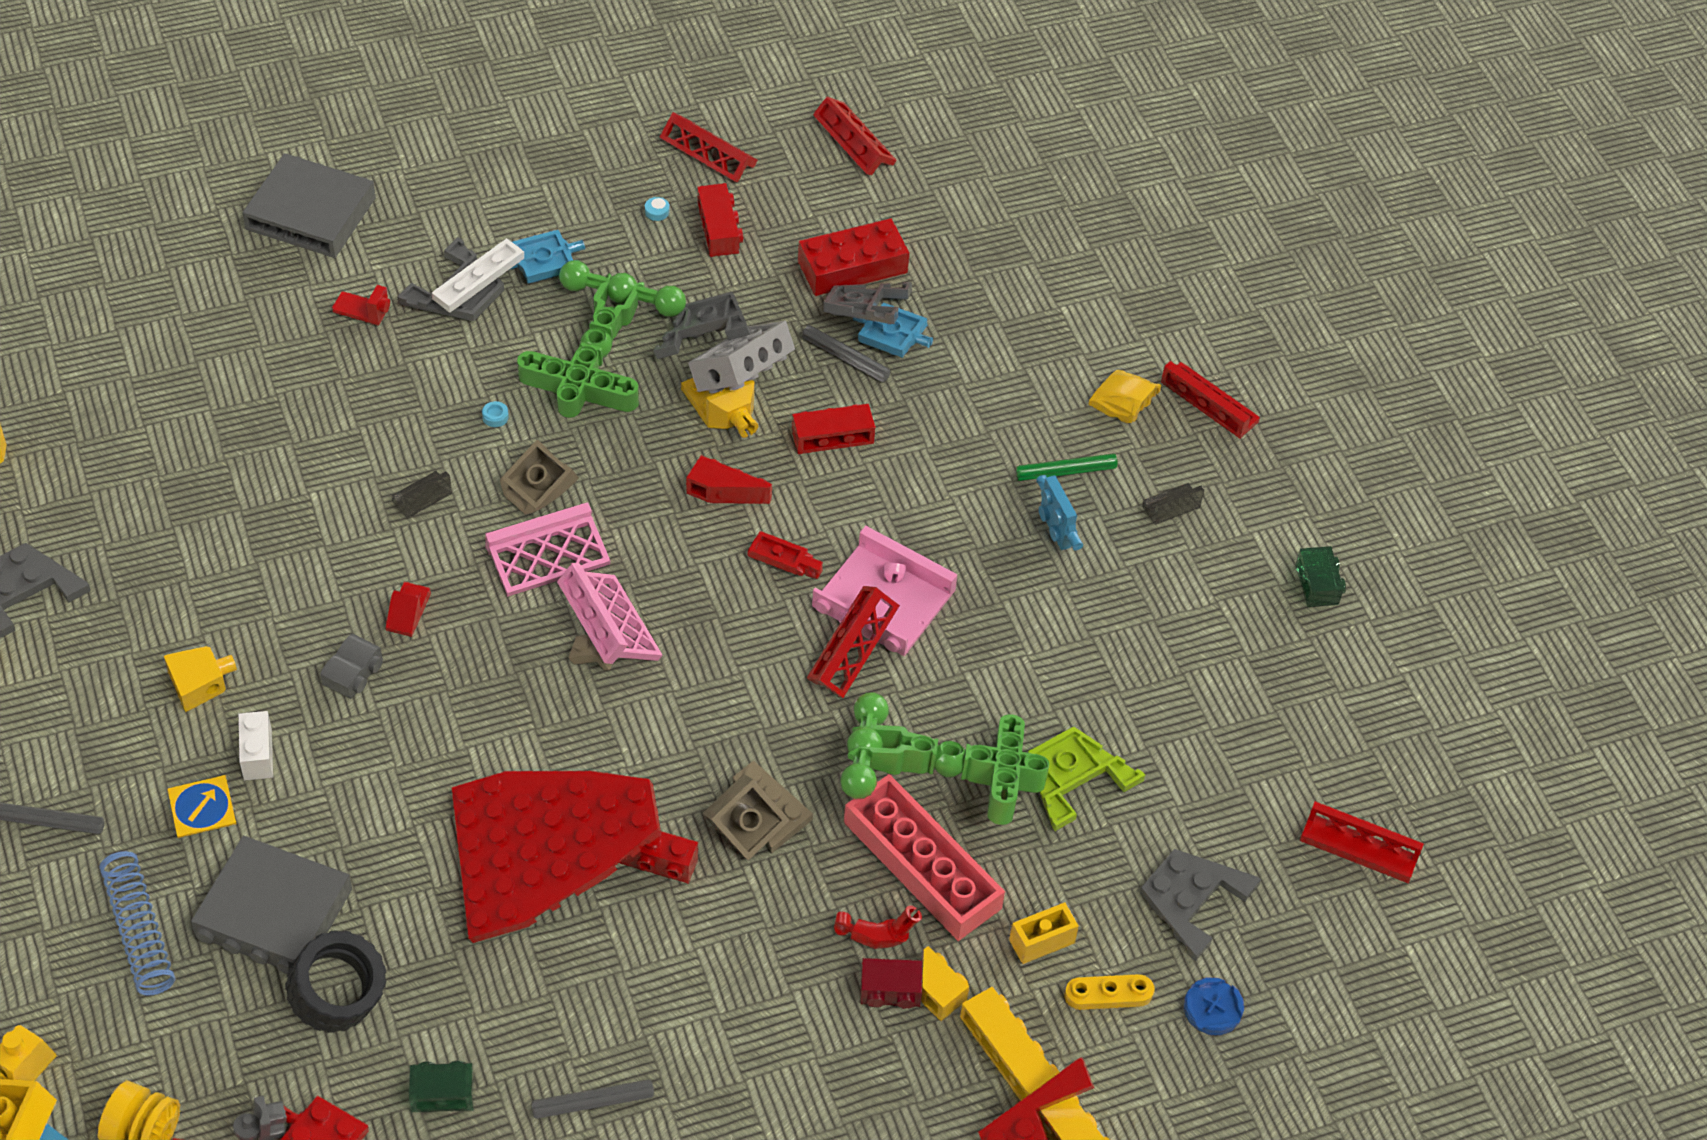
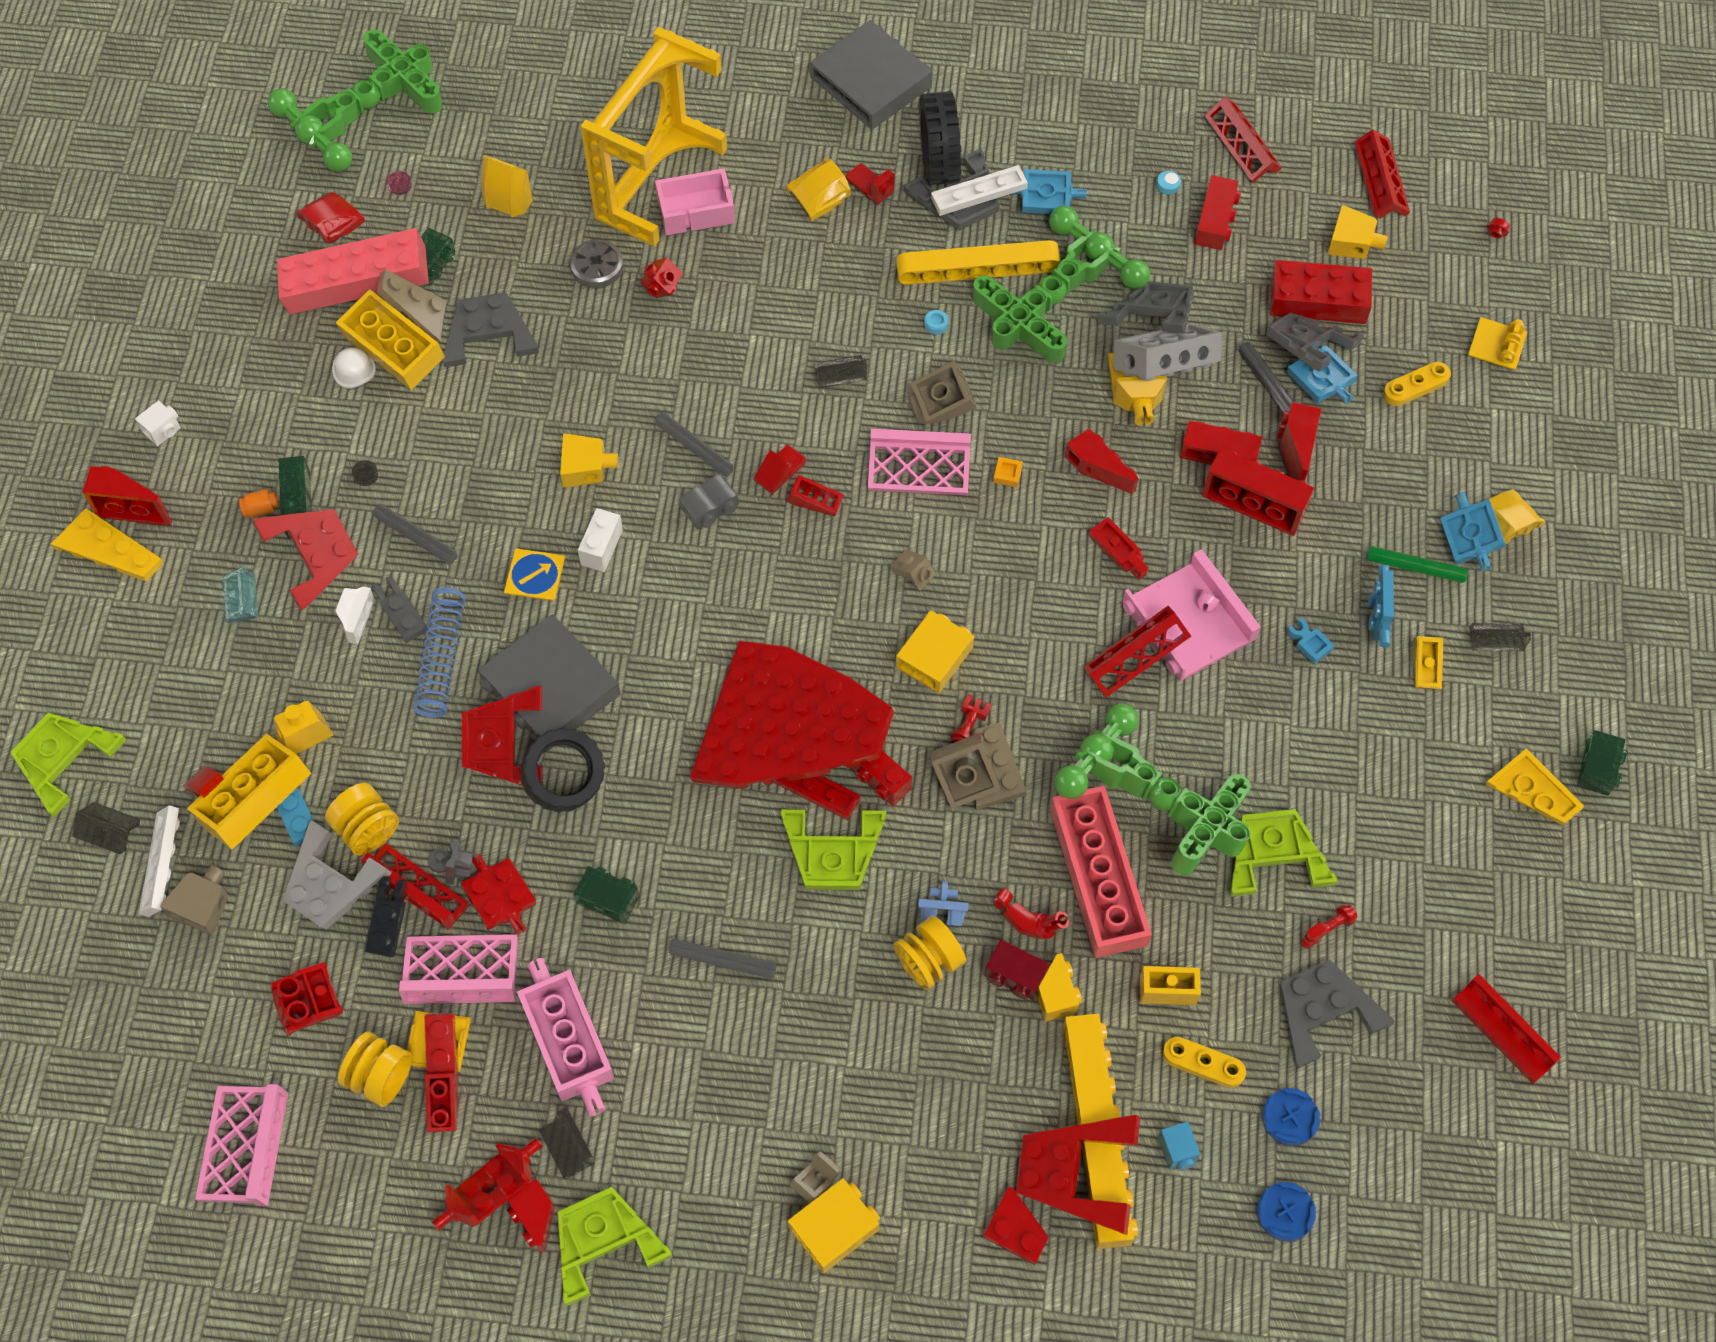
camera: 30 degrees right, 10 degrees up
(20, 920) = (354, 611): none -> white slope
(69, 900) = (400, 611): none -> dark grey hinge
(99, 472) = (594, 252): none -> flat silver wheel
(131, 327) = (672, 131): none -> yellow arch
(188, 384) = (695, 201): none -> bright pink piece
(190, 469) = (661, 277): none -> red brick
(237, 982) = (490, 735): none -> red wing
(305, 617) = (694, 444): none -> dark grey axle
(312, 328) = (820, 188): none -> yellow slope
(417, 237) = (940, 138): none -> black tyre
(448, 629) = (802, 500): none -> red slope
(508, 343) = (977, 261): none -> yellow beam
(600, 624) = (925, 541): bright pink fence -> none
(611, 898) = (824, 794): none -> red tile
(640, 526) = (1008, 472): none -> light orange plate
(652, 958) = (833, 860): none -> lime wing
(656, 719) = (935, 651): none -> yellow brick
(723, 763) = (973, 713): none -> red hinge
(777, 959) = (956, 910): none -> medium blue hips
(801, 1000) = (929, 952): none -> yellow wheel
(857, 196) = (1355, 235): none -> yellow torso
(890, 454) = (1257, 491): none -> red brick
(905, 397) = (1297, 438): none -> red slope
(984, 146) = (1498, 228): none -> red plate
(993, 298) = (1411, 389): none -> yellow plate
(1009, 573) = (1311, 644): none -> dark azure plate
(1037, 246) = (1498, 342): none -> yellow hinge
(1103, 418) = (1473, 531): none -> dark azure plate
(1122, 549) = (1428, 662): none -> yellow slope
(1128, 1077) = (1179, 1146): none -> dark azure brick
(1168, 804) = (1345, 915): none -> red hinge
(1209, 399) = (1583, 552): red fence -> none
(1254, 1093) = (1286, 1212): none -> blue tile
(1275, 621) = (1536, 787): none -> yellow wing

